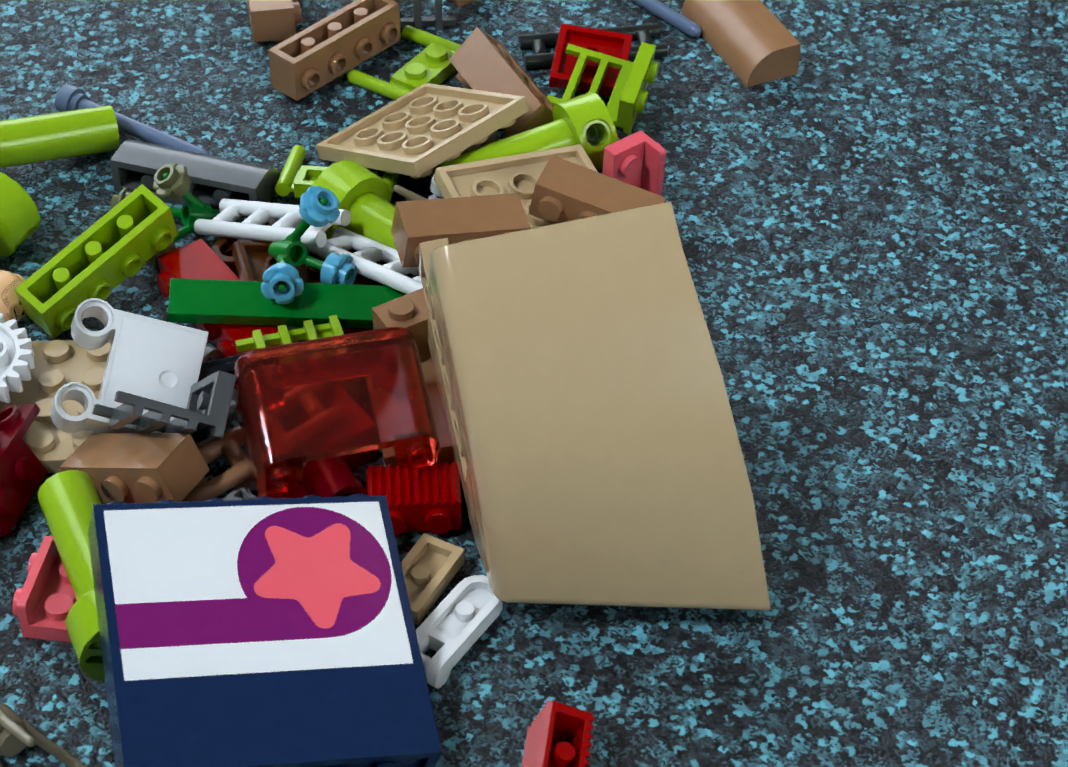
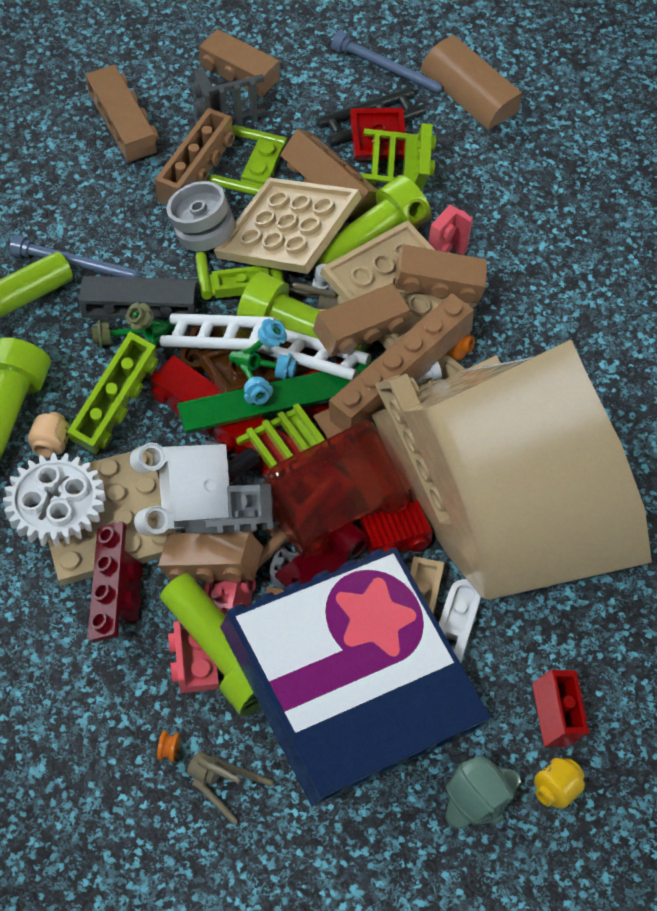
camera: 15 degrees left, 15 degrees up
(312, 101) = (201, 216): none -> light grey wheel

